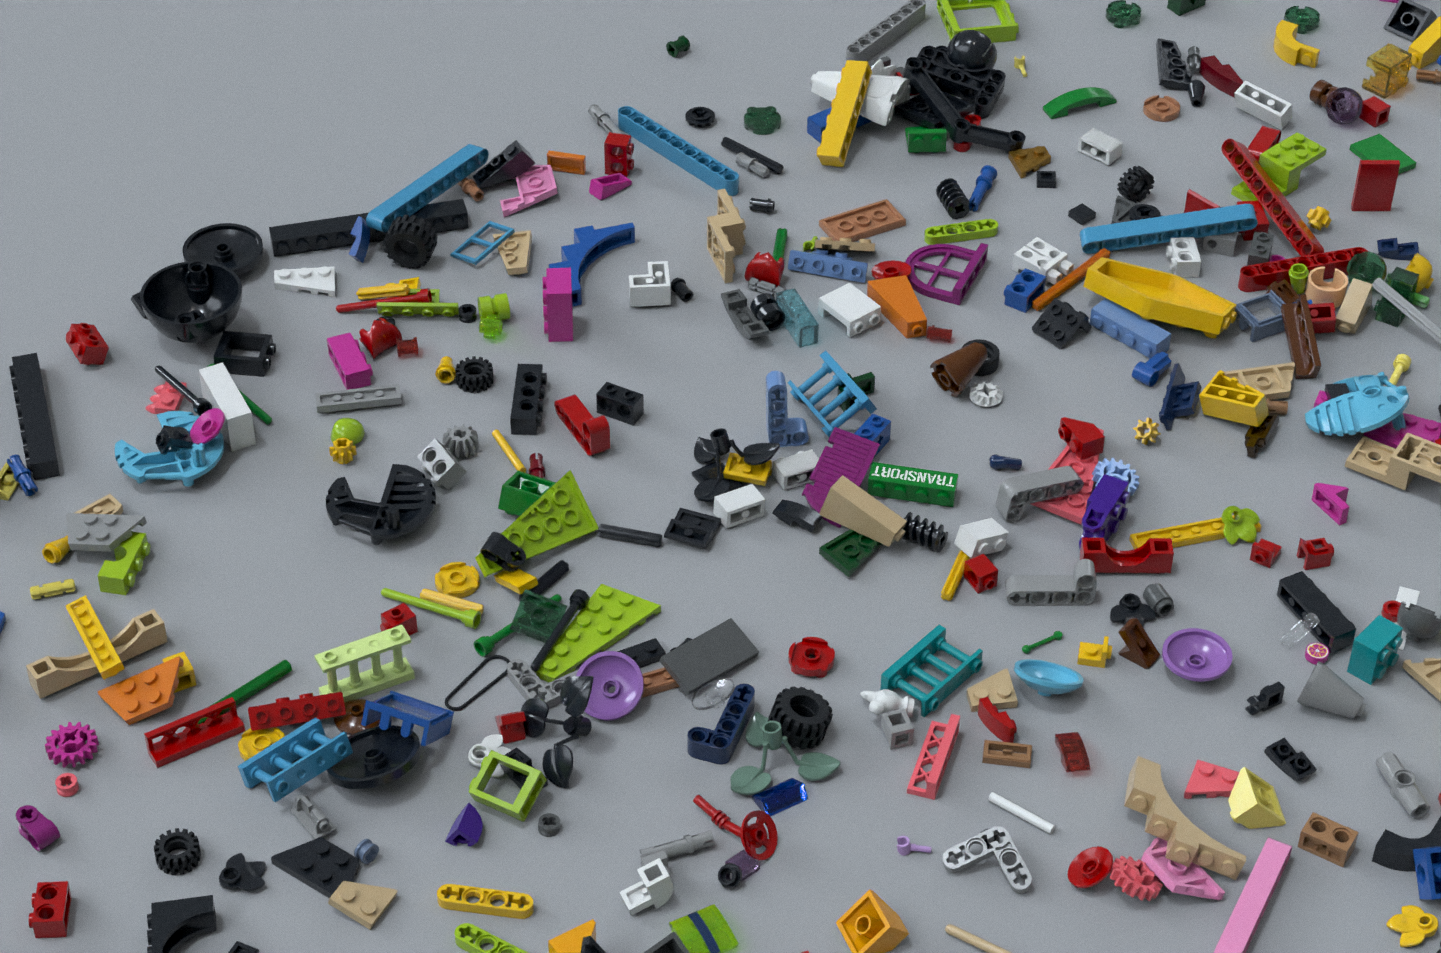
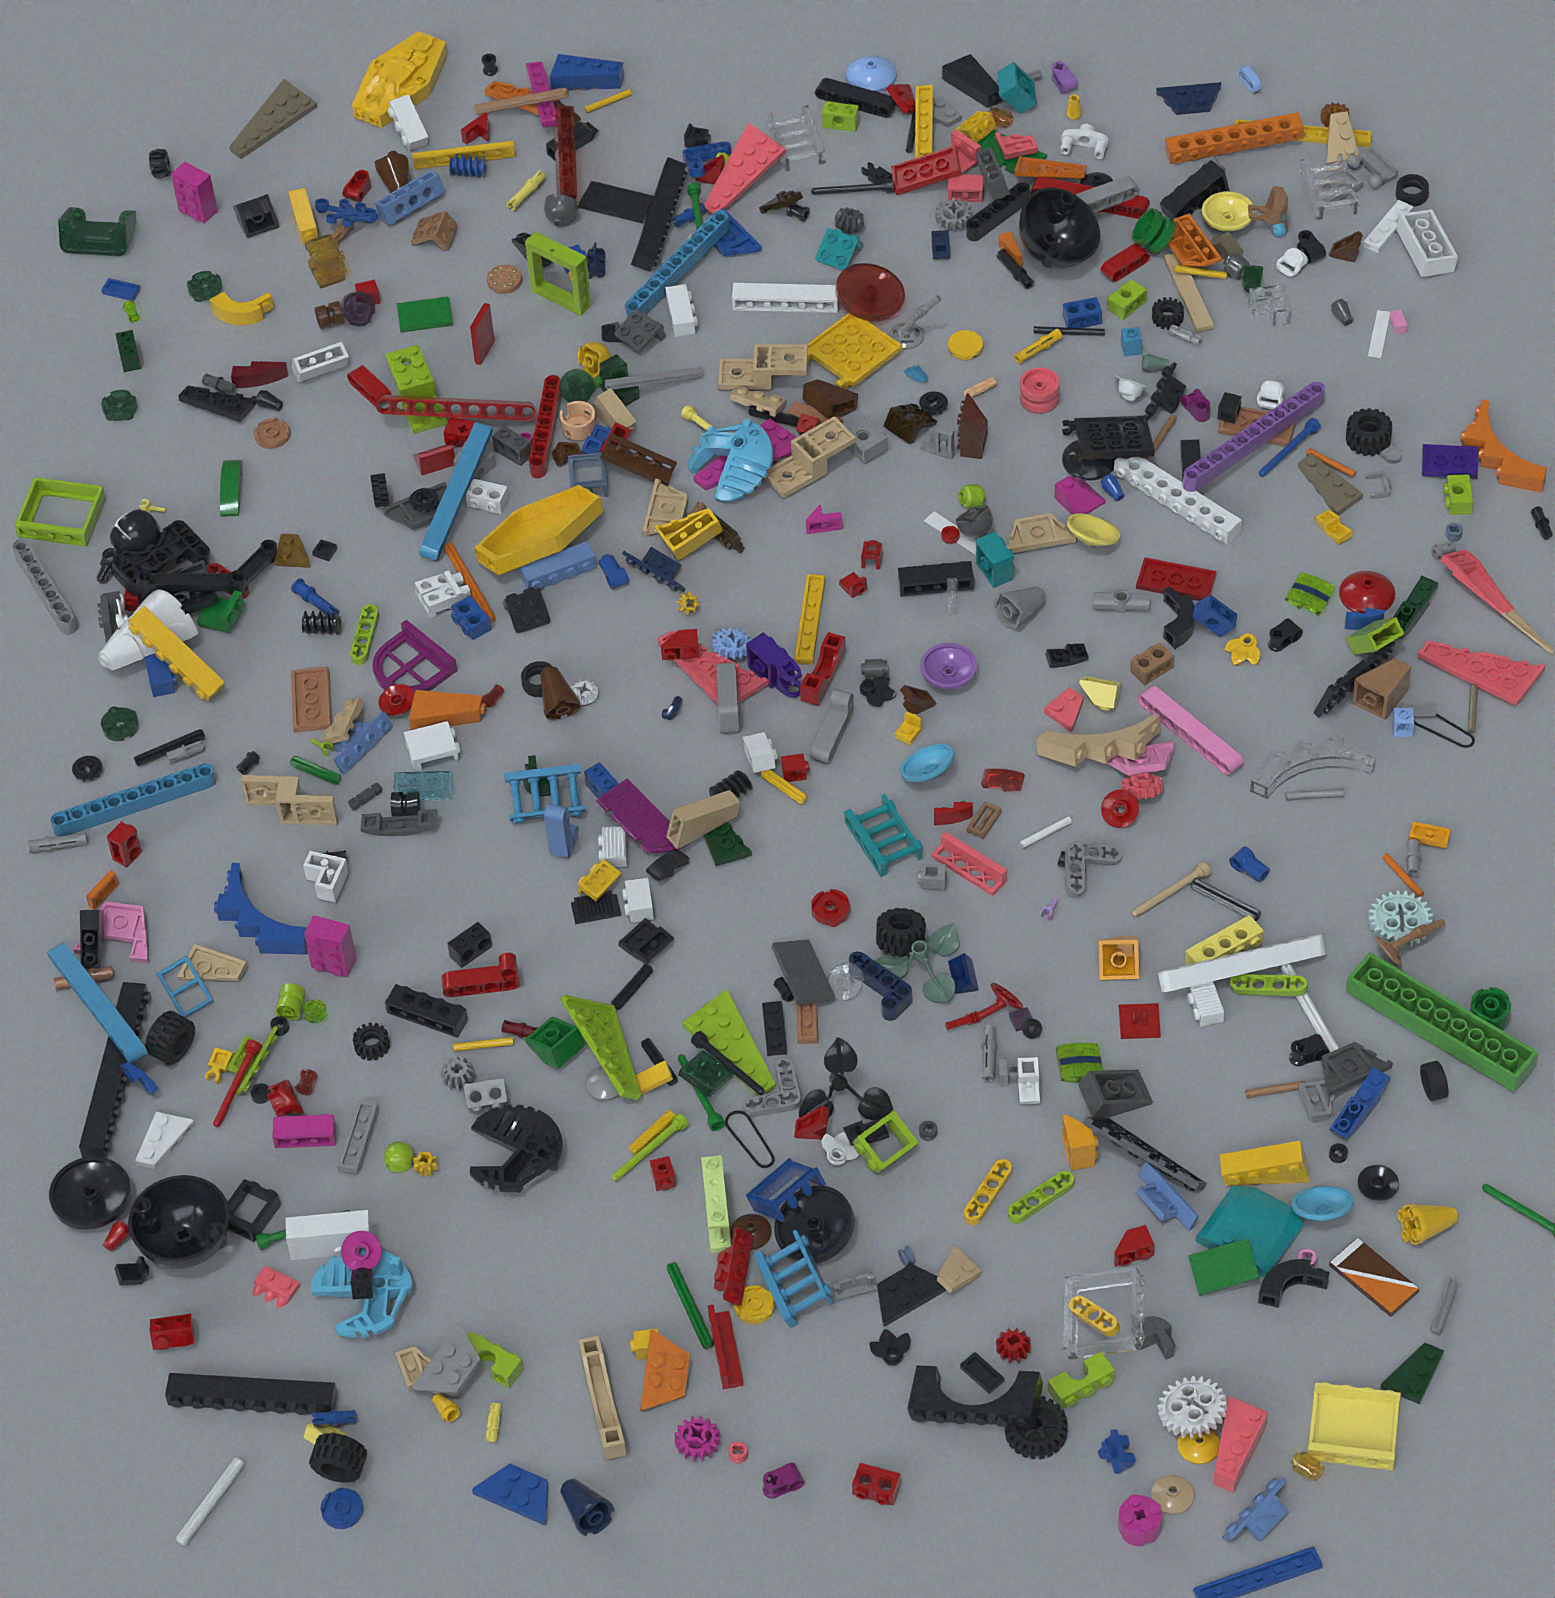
camera: 65 degrees left, 10 degrees up
(95, 637) = (584, 1394): yellow plate -> none
(174, 841) = (850, 1396): black tyre -> none
(200, 405) = (321, 1253): black piece -> none
(383, 291) = (222, 1080): yellow axle -> none
(445, 372) = (354, 1061): yellow cone -> none
(457, 579) = (625, 1122): yellow tile -> none
(466, 827) = (908, 1185): dark purple brick -> none
(501, 551) = (632, 1071): black piece -> none
(608, 185) = (151, 869): dark pink slope -> none
(611, 670) = (815, 1036): medium lavender dish -> none
(709, 450) = (557, 899): black plant -> none
(765, 268) = (348, 787): red hair -> none
(886, 701) = (905, 873): white animal -> none
(912, 484) = (672, 775): green brick -> none
(996, 688) = (919, 806): tan wing -> none
(1056, 636) = (877, 745): green hinge -> none
(1082, 214) = (387, 543): black tile -> none
(1100, 146) = (306, 495): white brick -> none
(1242, 526) = (819, 586): lime plate -> none
(1269, 697) = (1004, 642): black plate -> none
(1298, 277) = (559, 431): lime cone -> none
(1316, 652) = (970, 597): dark pink tile -> none
(1318, 218) = (487, 389): yellow gear -> none
(1335, 390) = (709, 466): black tile -> none
(1391, 249) = (550, 356): dark blue slope -> none

